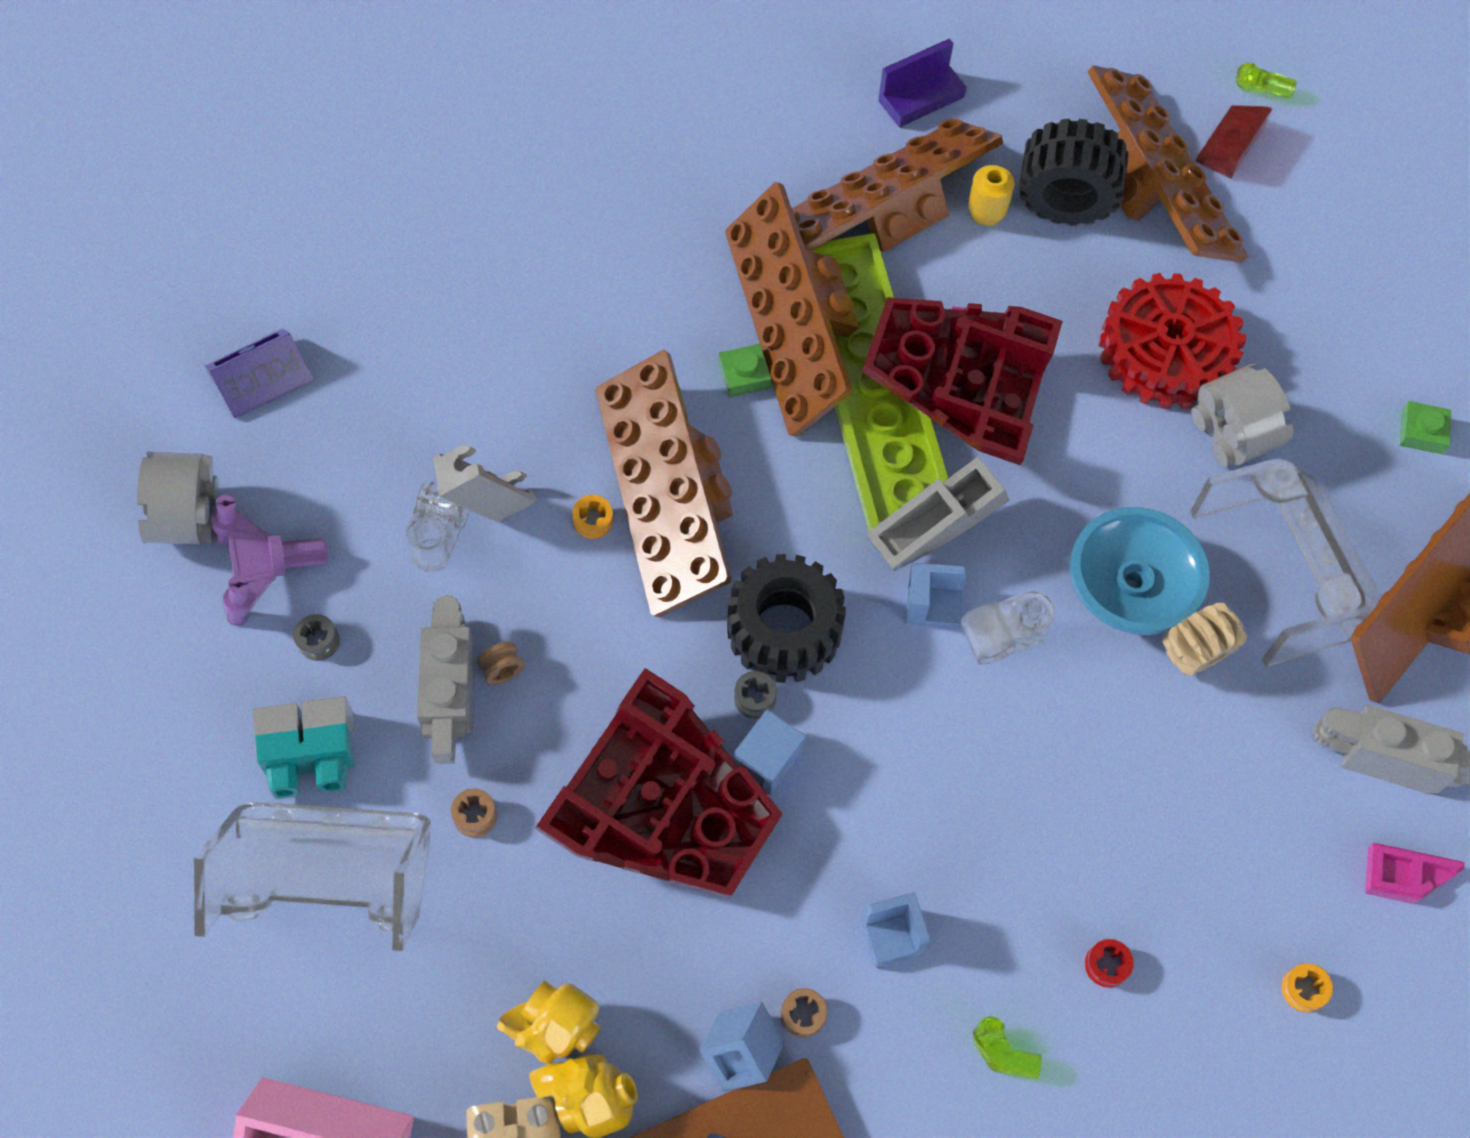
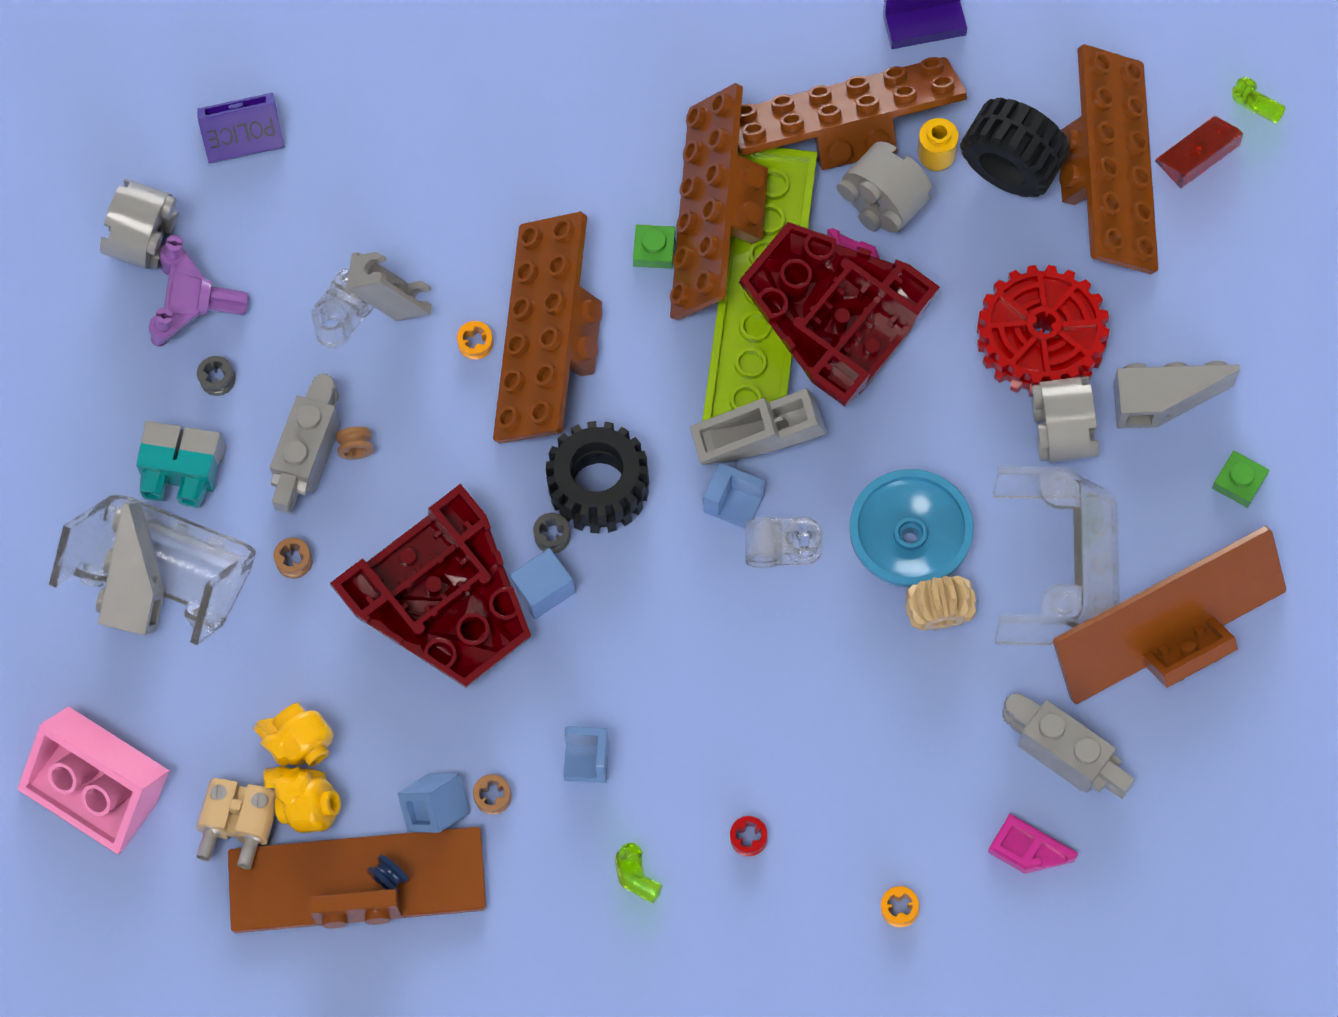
camera: 25 degrees right, 5 degrees up
(297, 900) = (133, 582): none -> light grey slope
(962, 245) = (885, 188): none -> light grey brick
(1315, 364) = (1158, 394): none -> light grey slope

